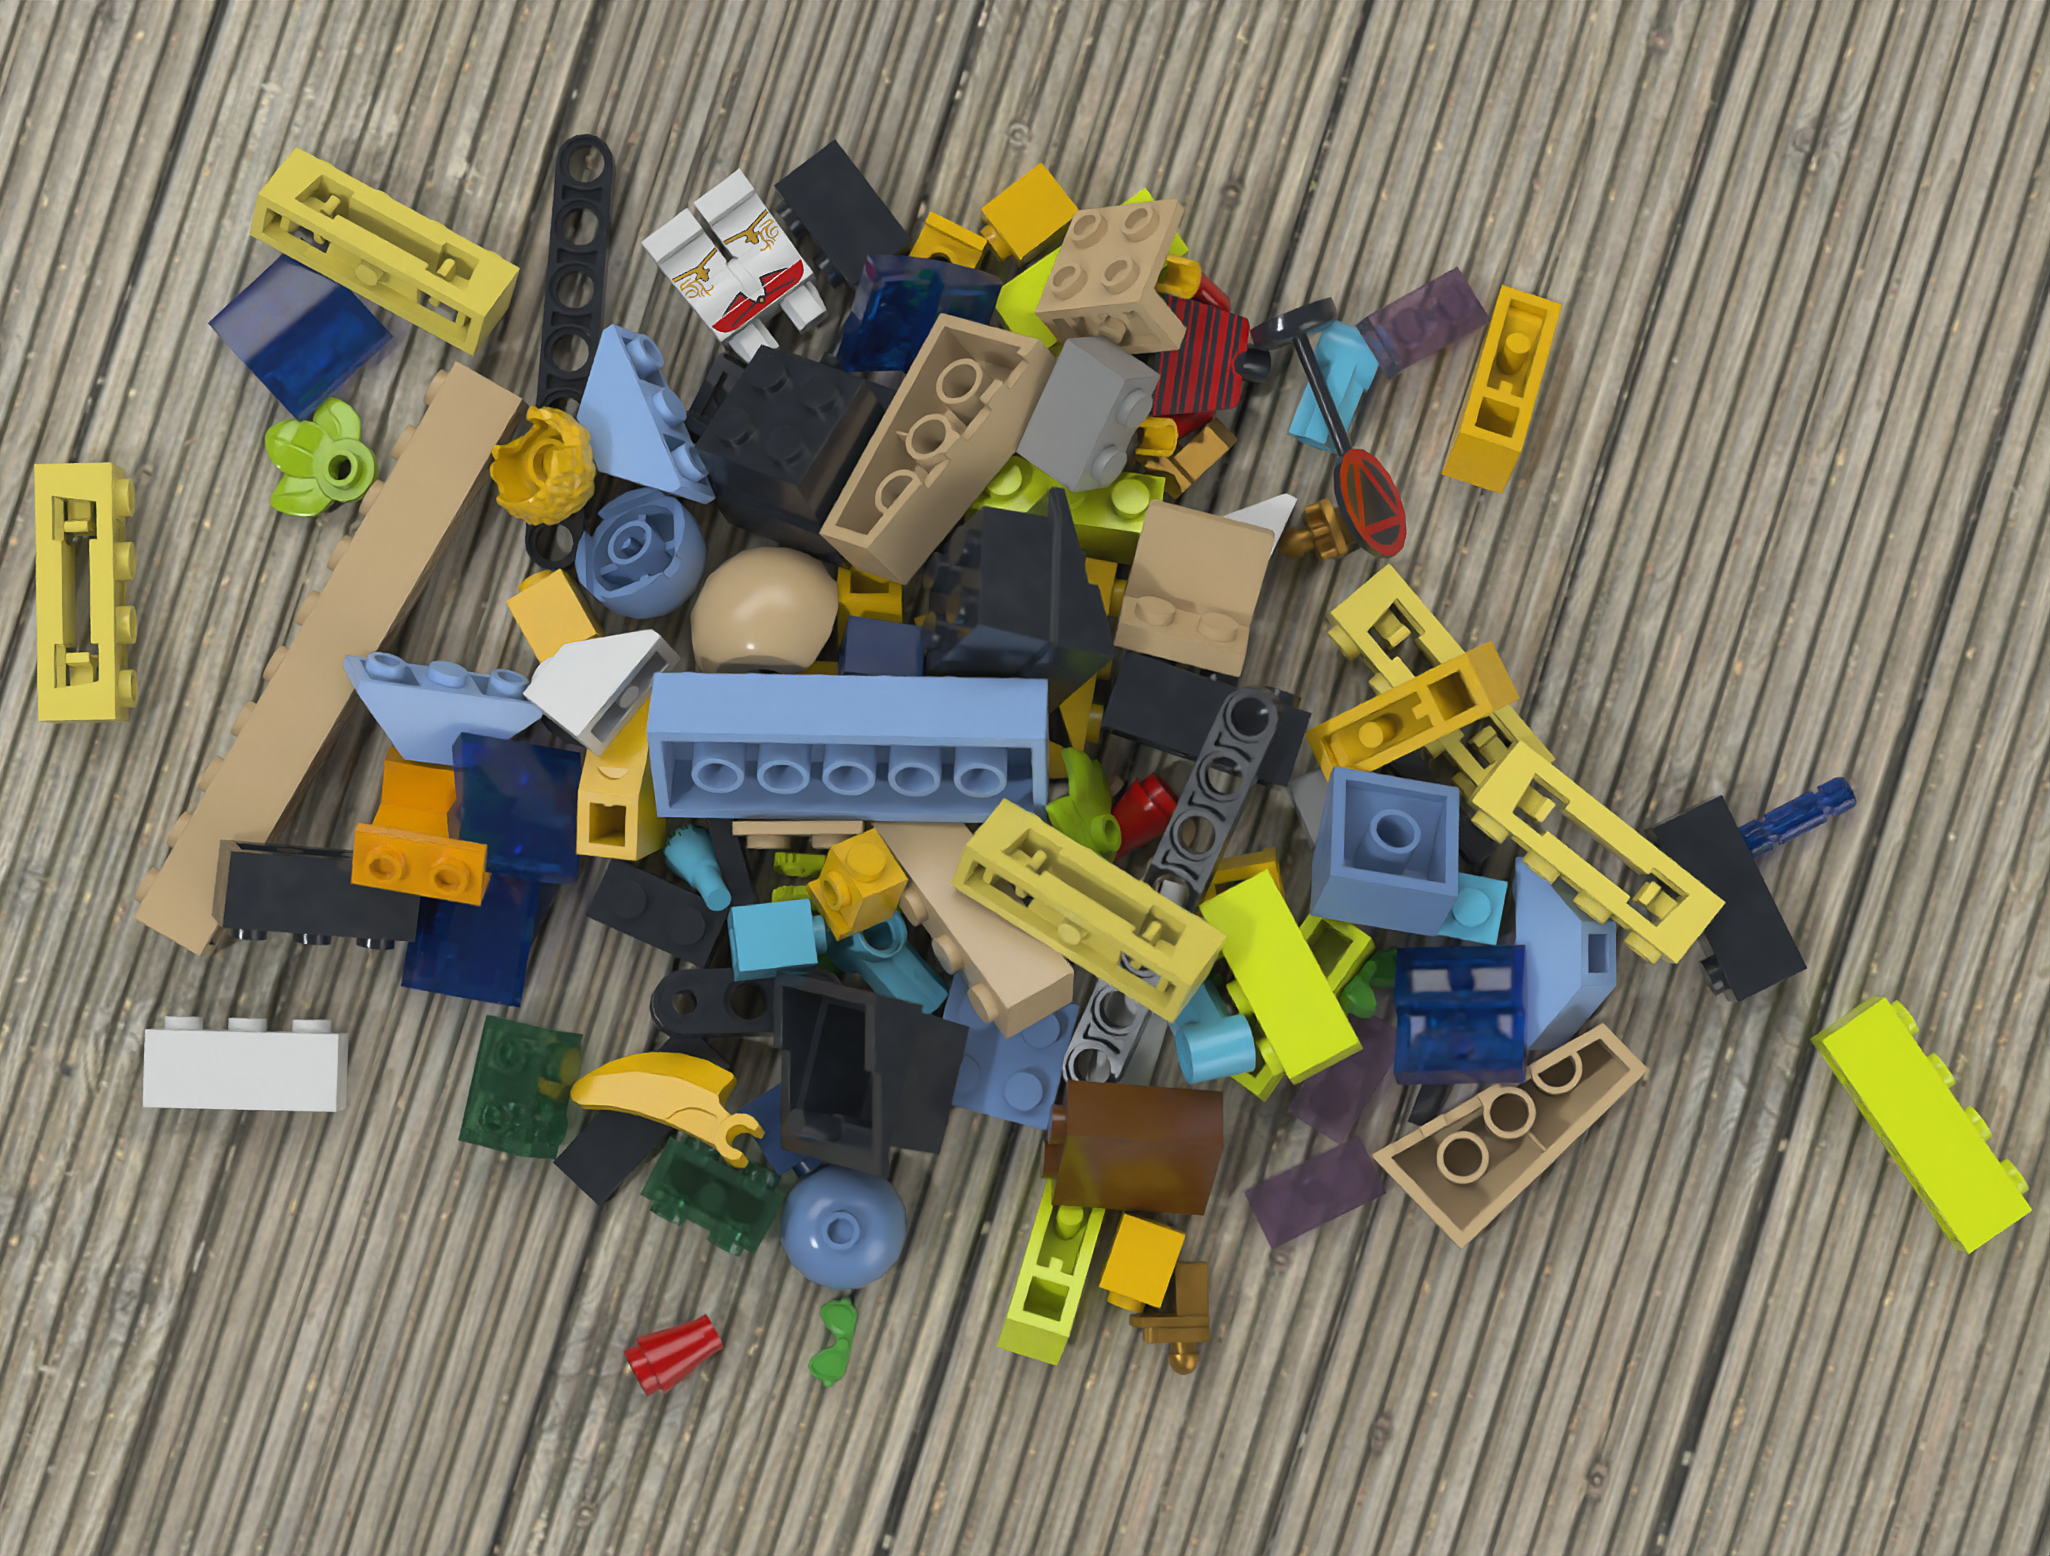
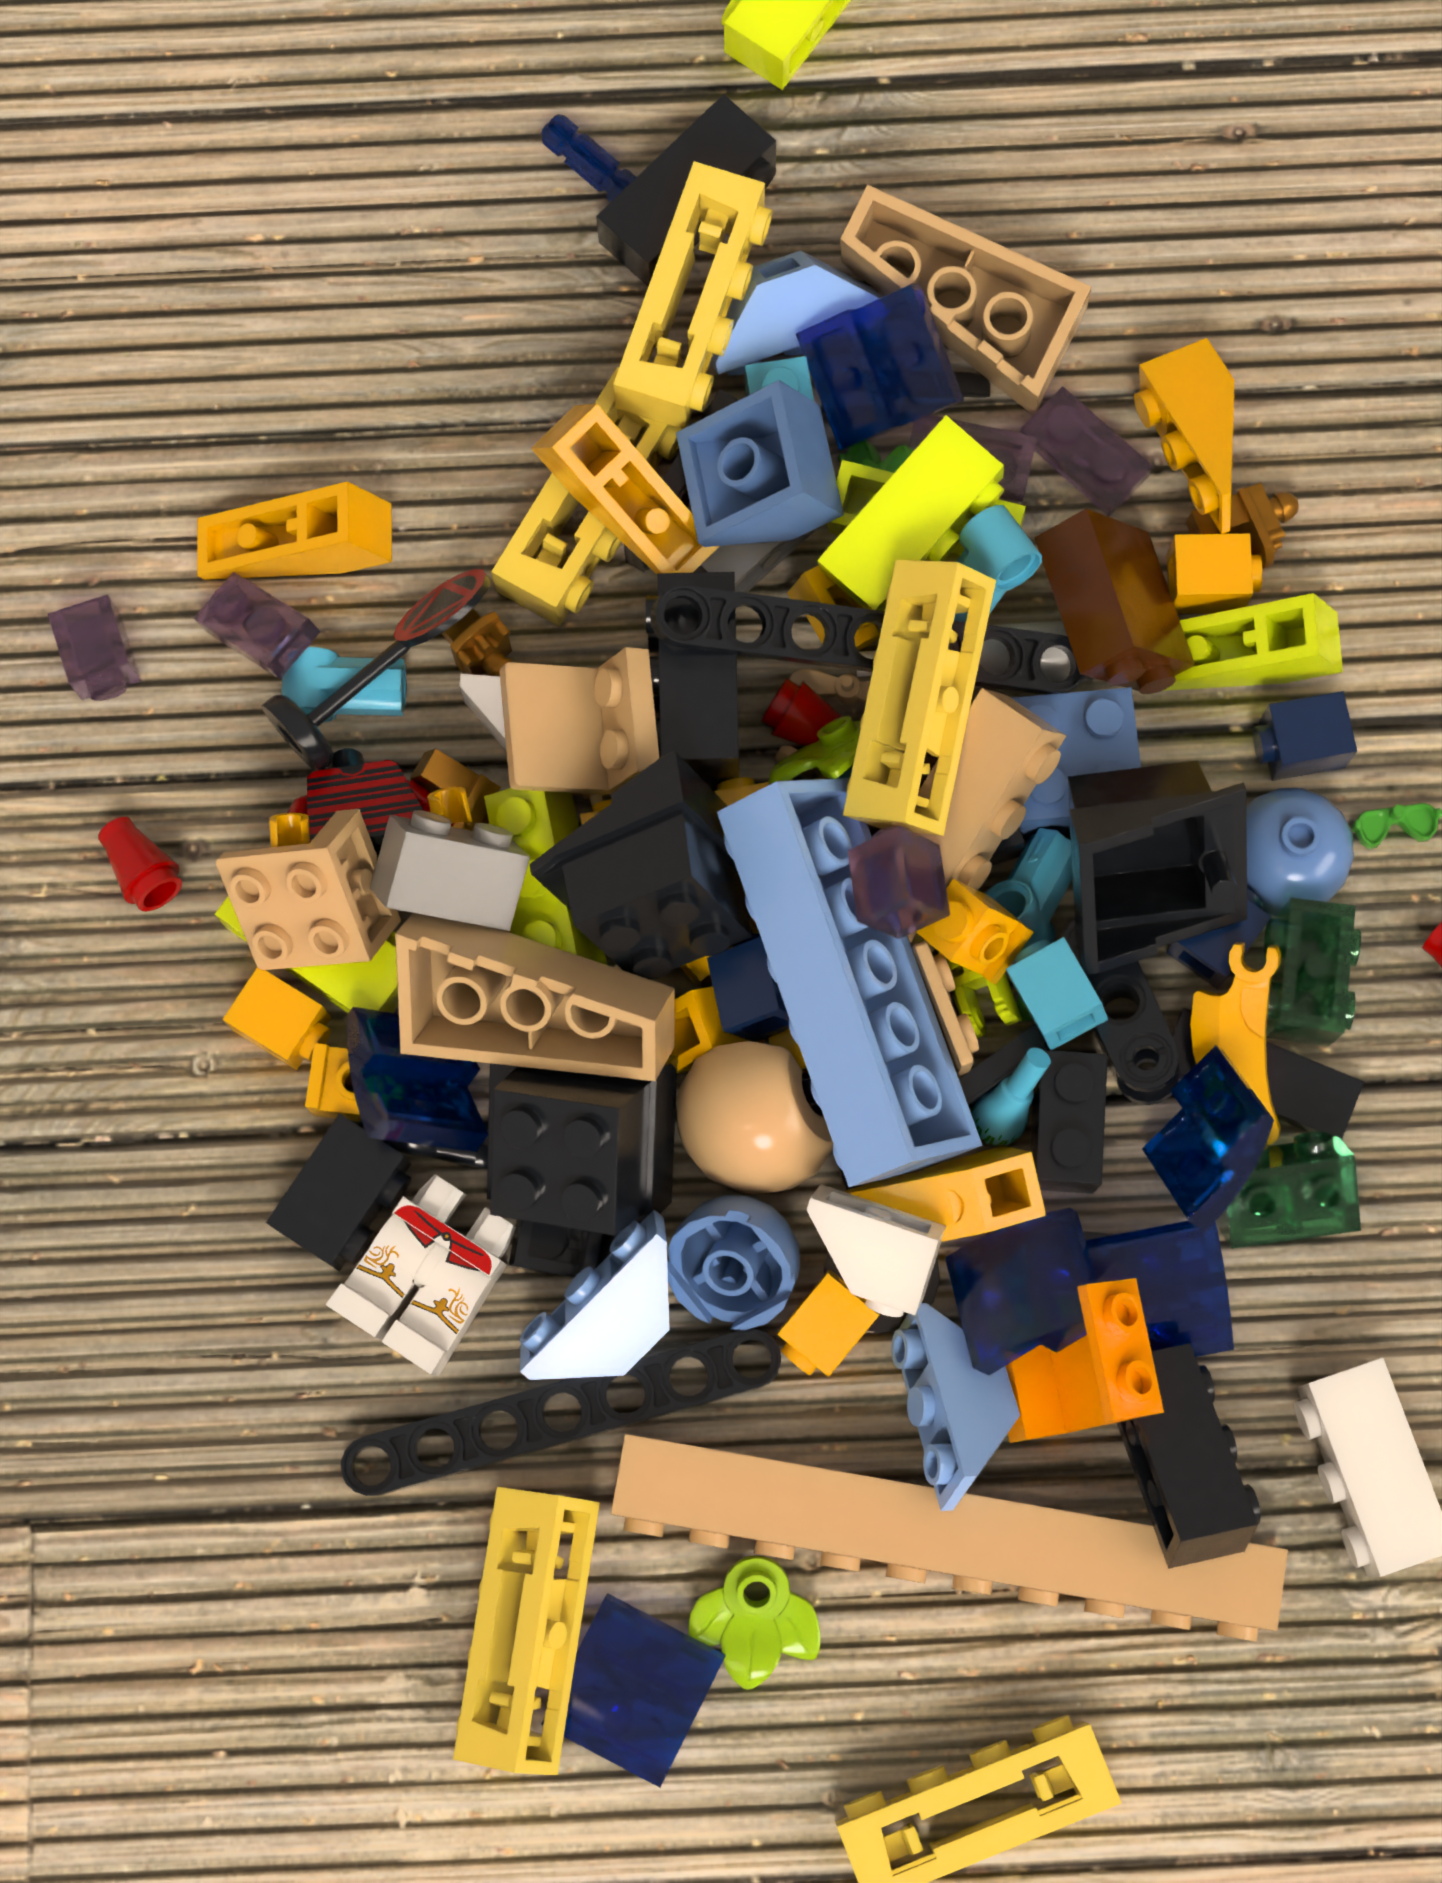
camera: 105 degrees left, 10 degrees down
(547, 470) = (686, 1382): yellow hair -> none
(587, 1028) = (1212, 1140): none -> clear blue slope
(921, 824) = (898, 882): none -> brick
(946, 1284) = (1305, 736): none -> dark blue brick
(1228, 135) = (140, 866): none -> red cone
(1304, 1309) = (1192, 409): none -> yellow slope
(1456, 161) = (94, 649): none -> brick

